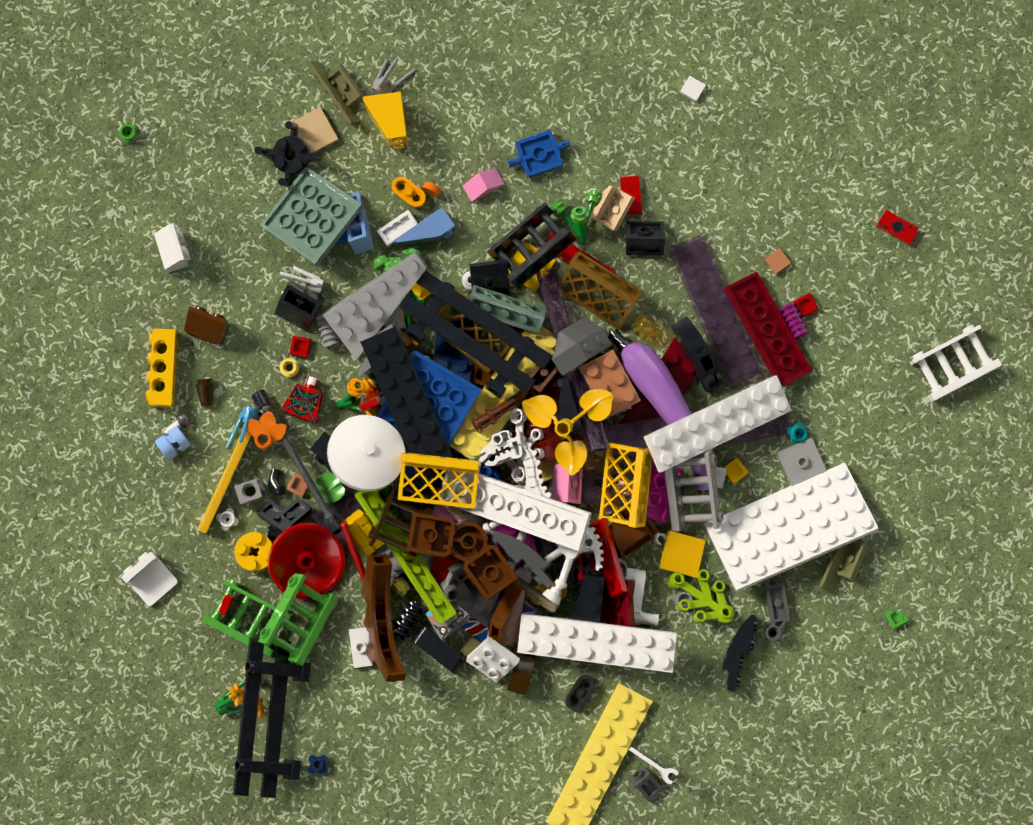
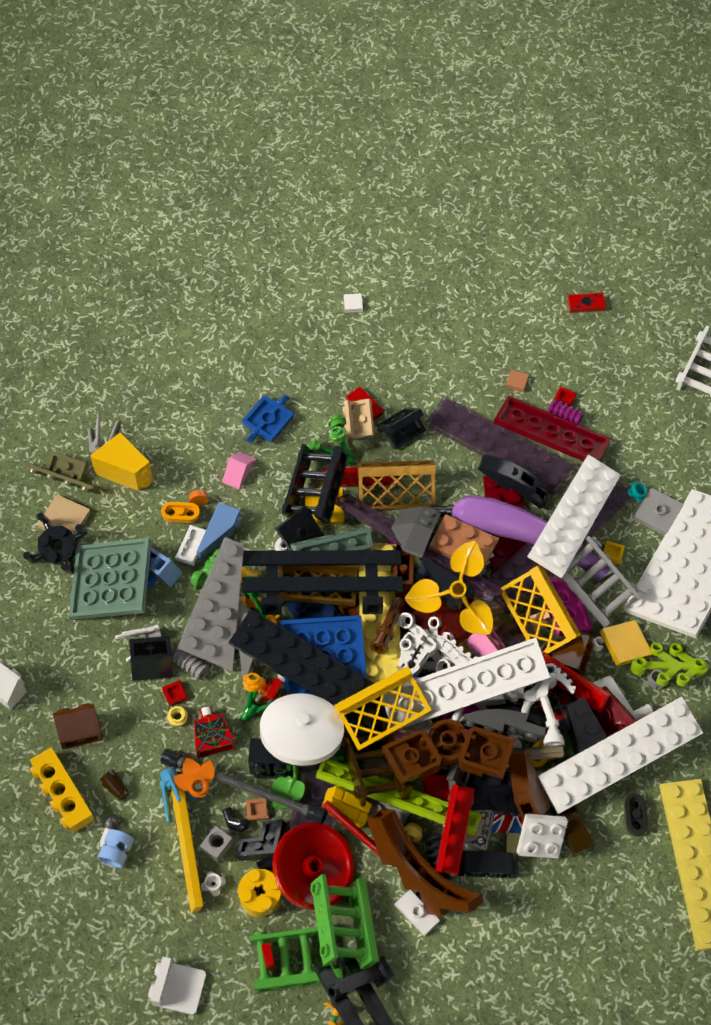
camera: 40 degrees left, 20 degrees down
(424, 611) = (455, 829): none -> red fence
(646, 327) = (454, 489): clear yellow head -> none

